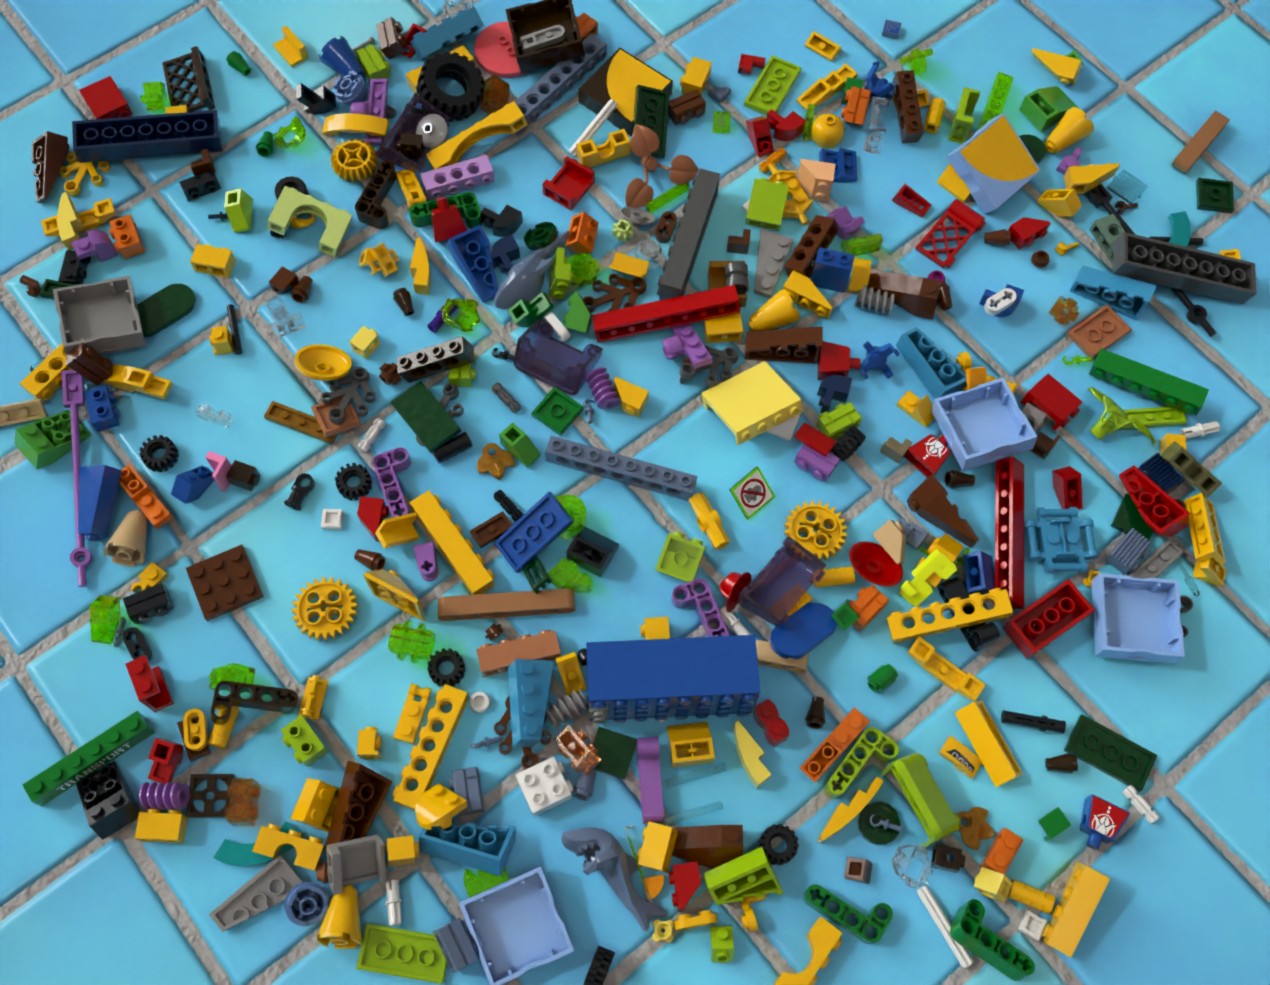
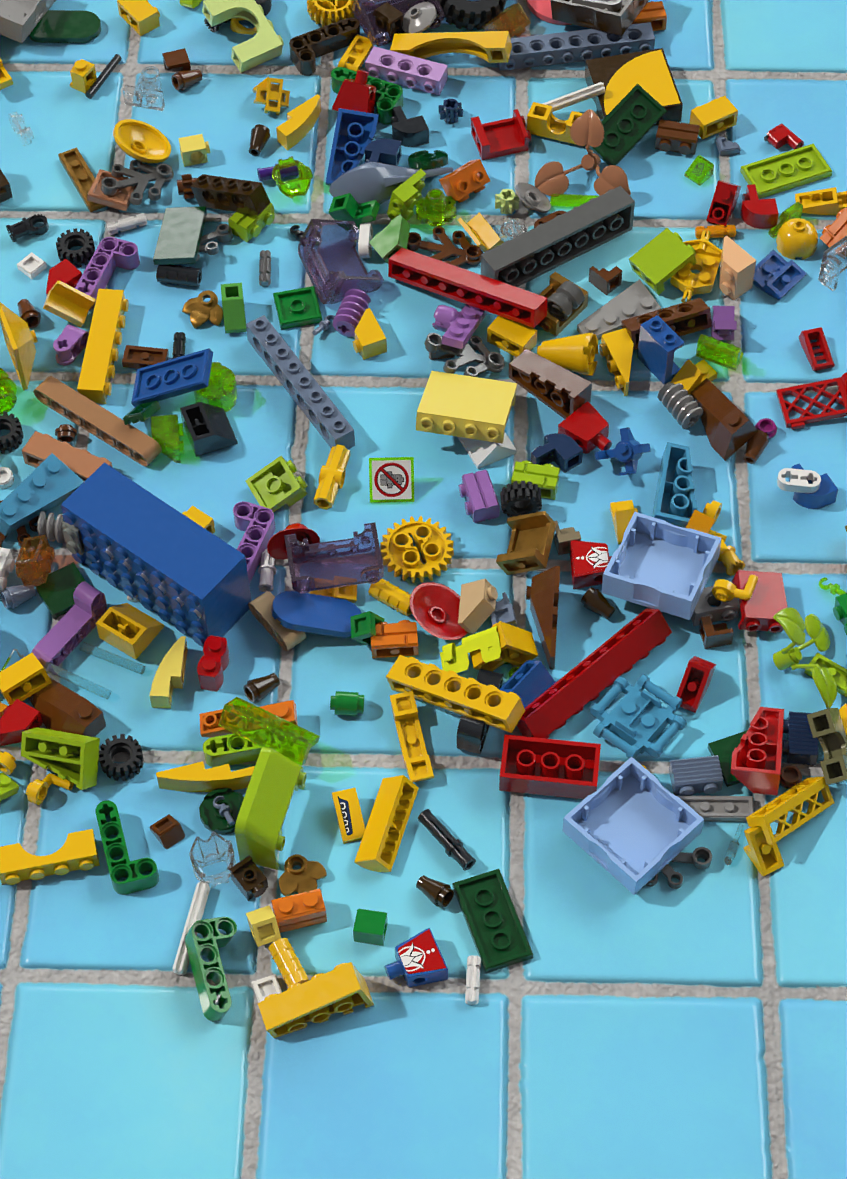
camera: 45 degrees right, 10 degrees down
(518, 187) = (450, 111): none -> dark blue gear
(814, 439) = (491, 474): red panel -> none
(866, 746) = (267, 730): none -> clear neon green fence
(883, 471) = (528, 543): none -> pearl gold panel
(1036, 412) = (726, 590): none -> yellow plate

